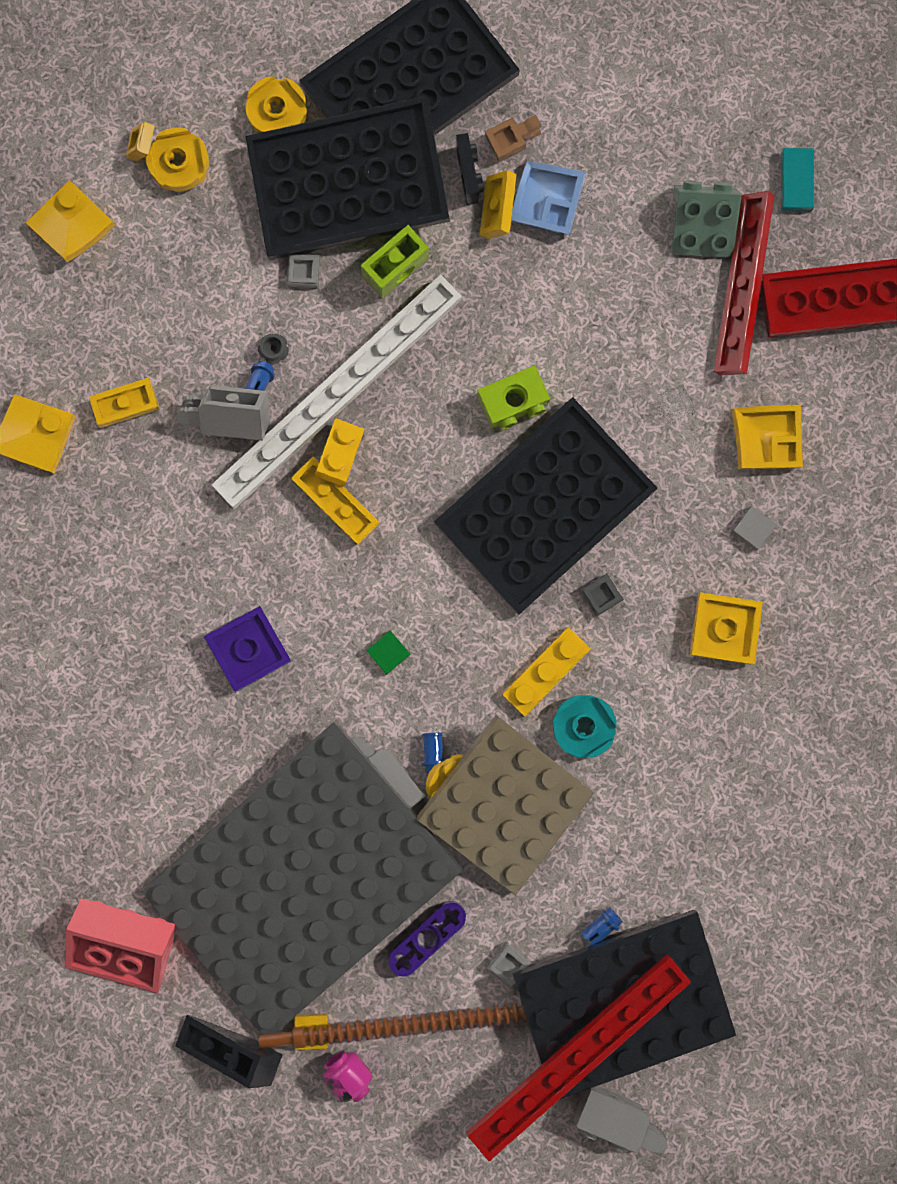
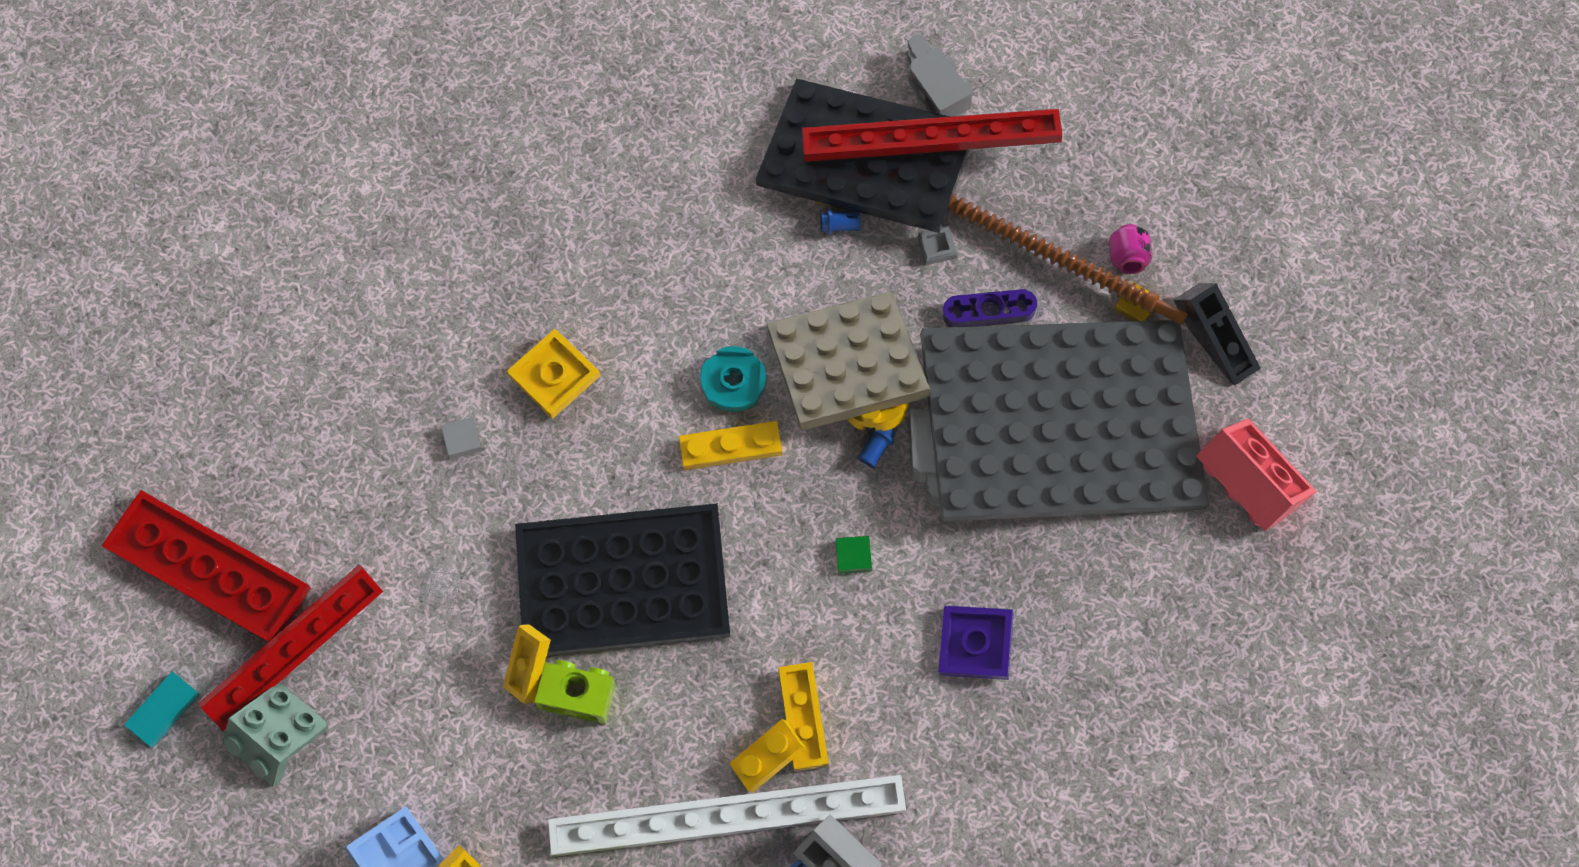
camera: 135 degrees left, 15 degrees down
(563, 388) = (526, 663): none -> yellow plate
(601, 595) = (634, 474): dark grey tile -> none
(768, 436) = (385, 501): yellow plate -> none

